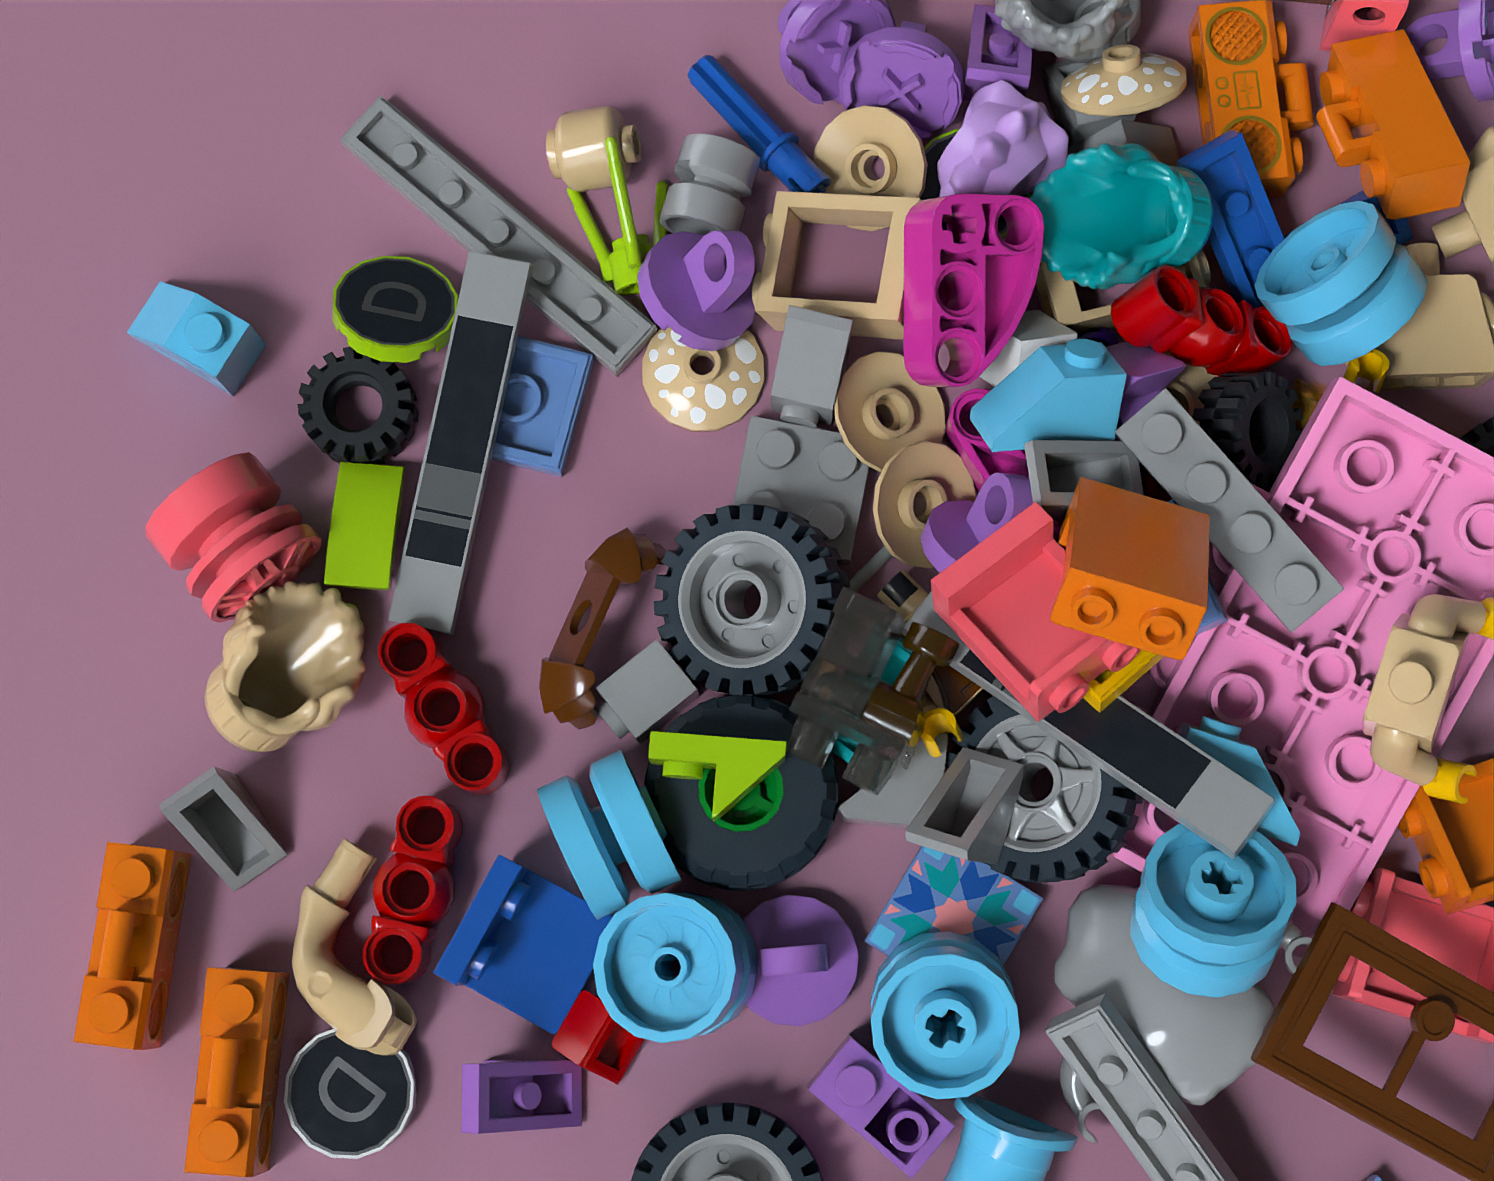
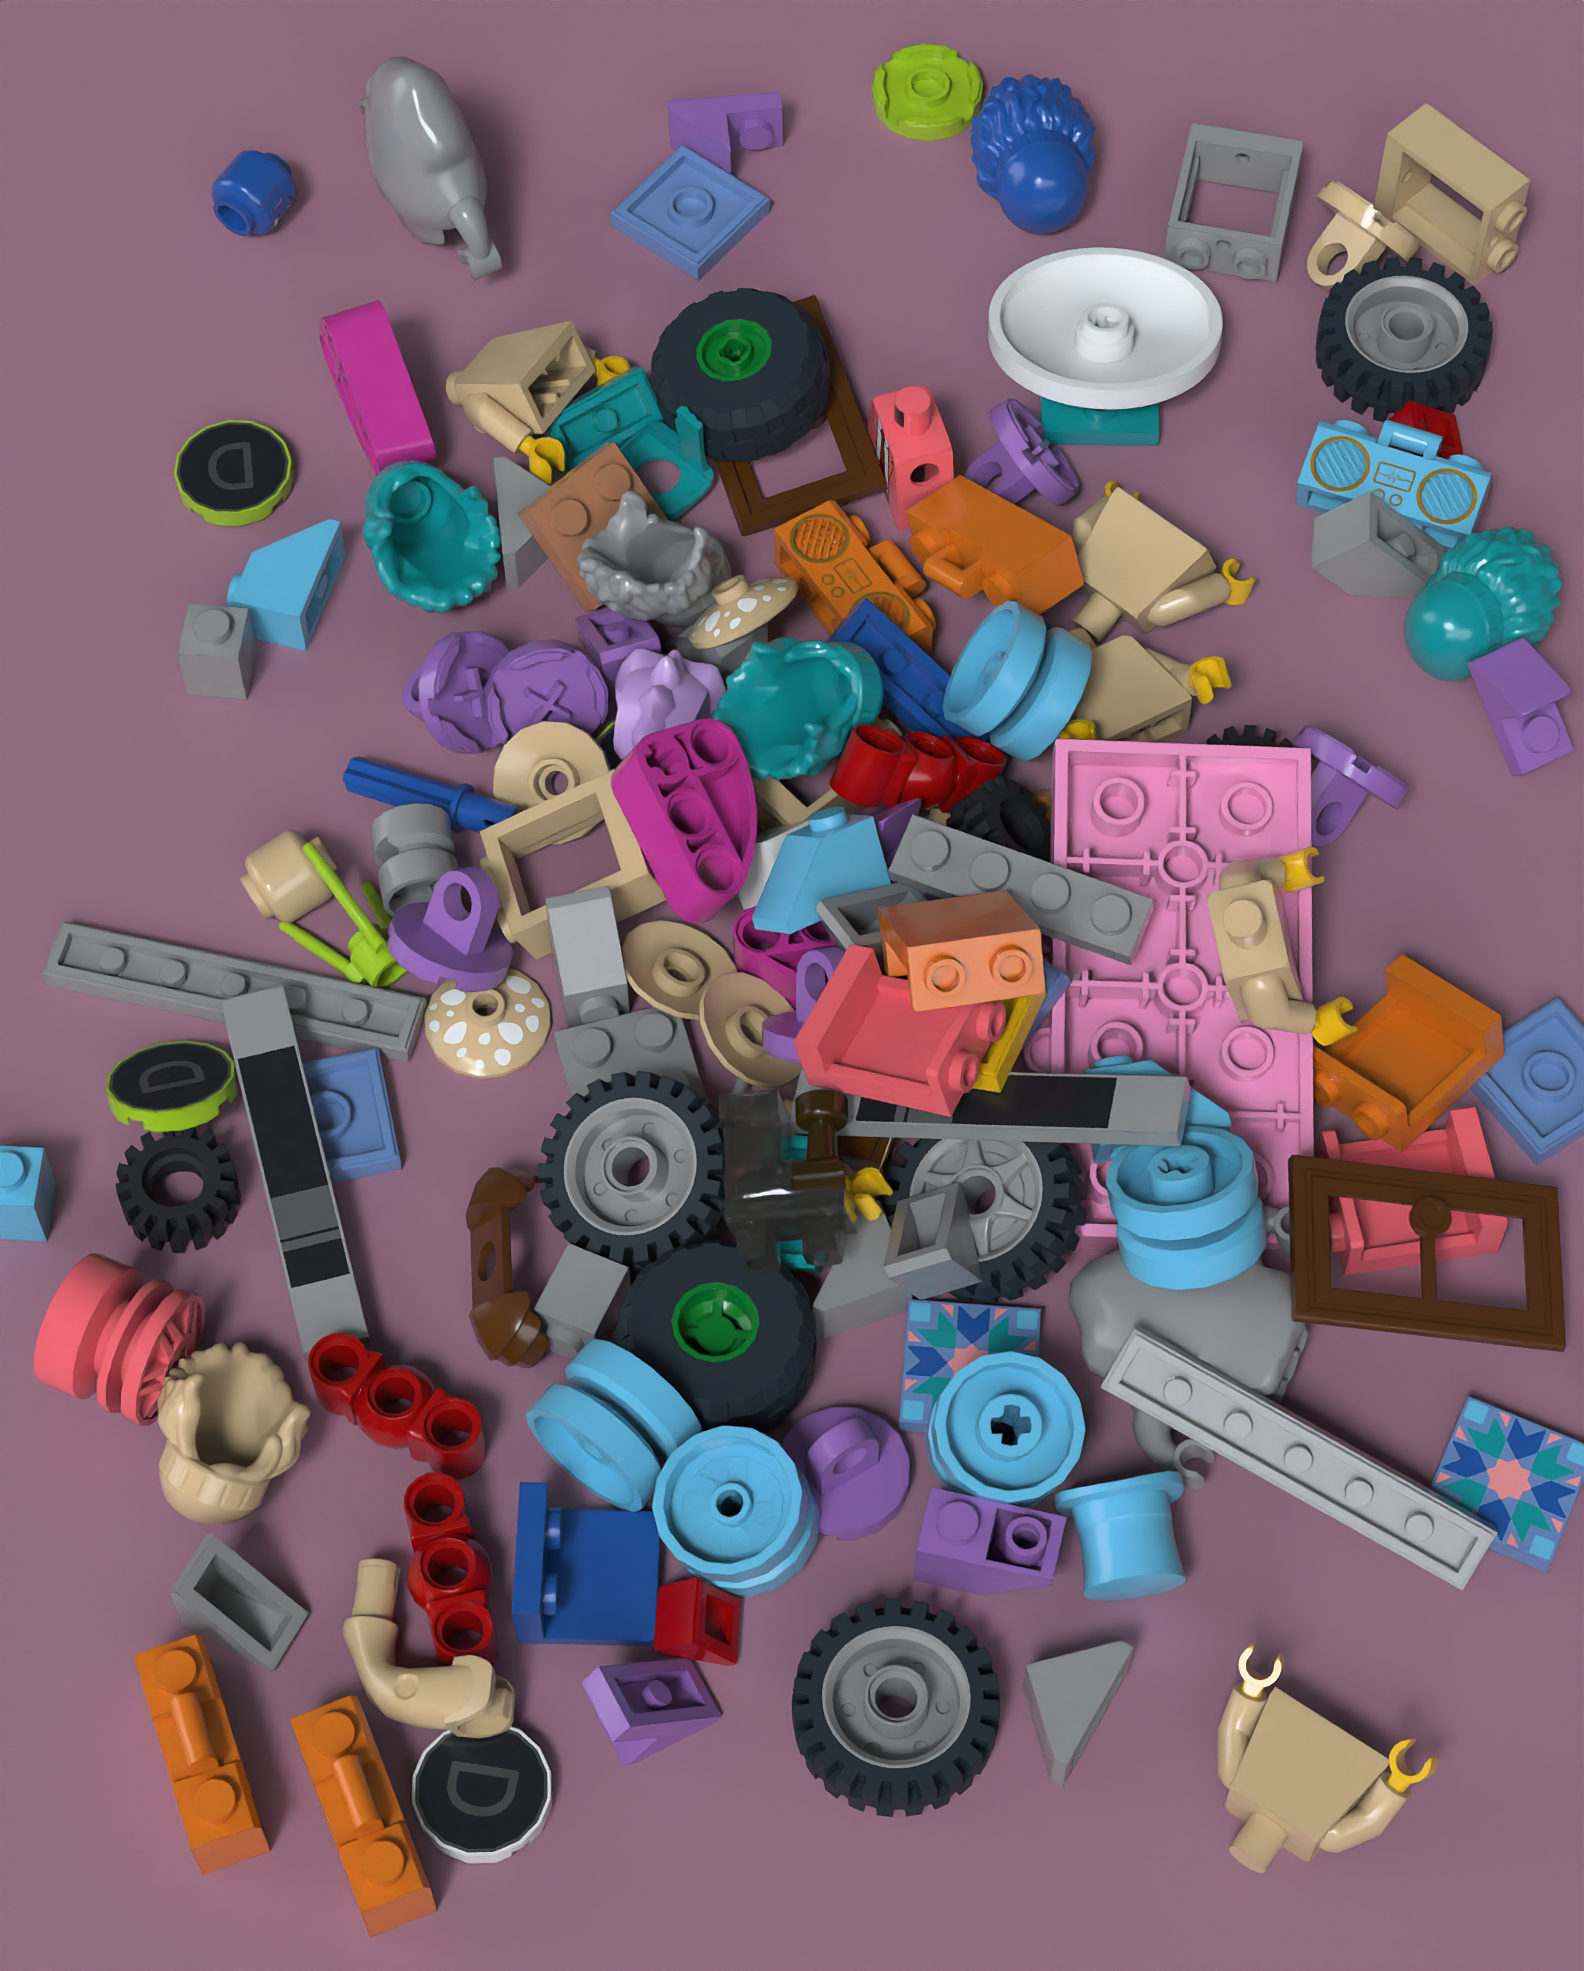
camera: 30 degrees left, 20 degrees down
(364, 526) = (239, 1284): lime slope -> none
(737, 761) = (694, 1288): lime slope -> none

